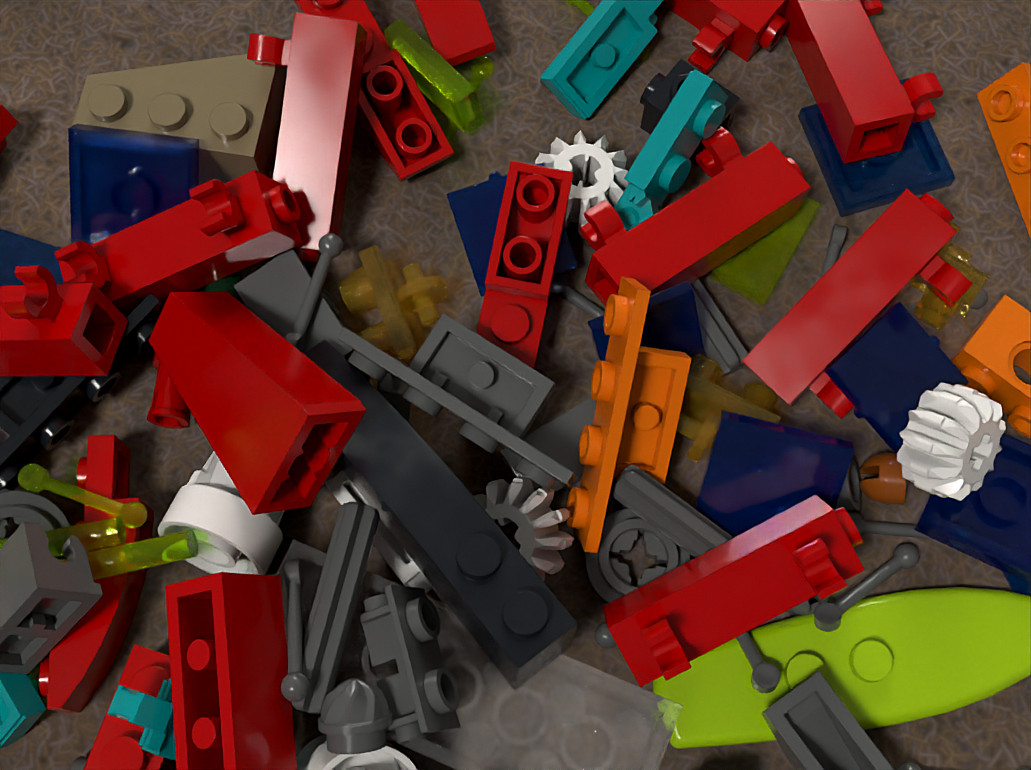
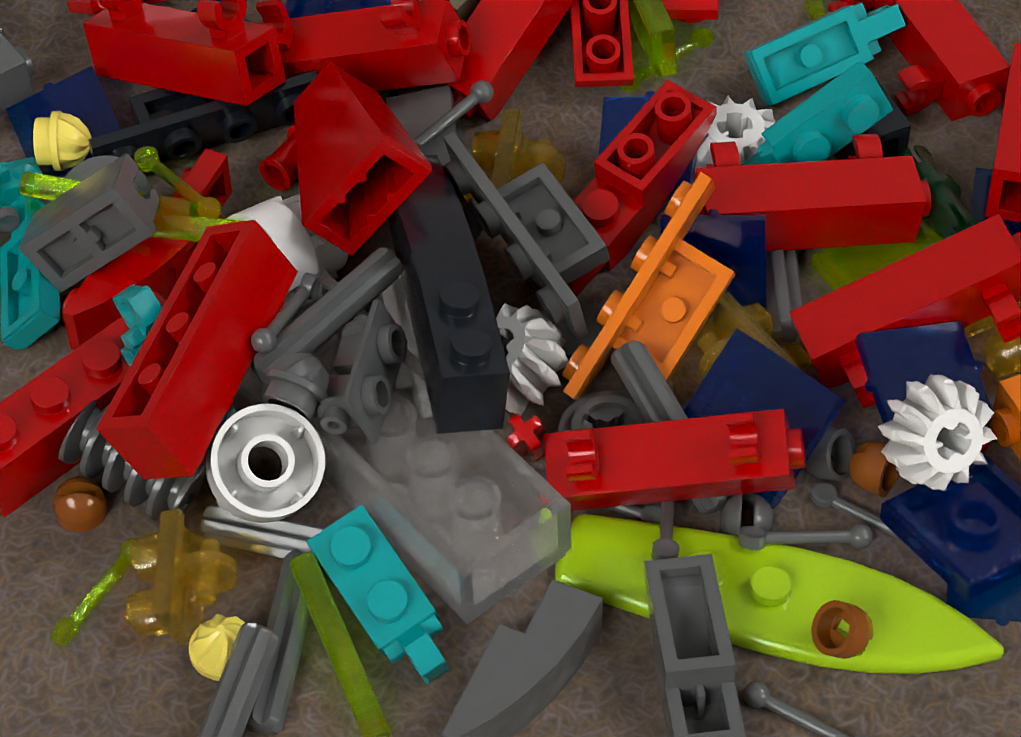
camera: 30 degrees right, 20 degrees down
(592, 633) = (527, 436): none -> red axle
(816, 172) = (947, 207): none -> clear green pin
(968, 689) = (833, 640): none -> dark orange hinge

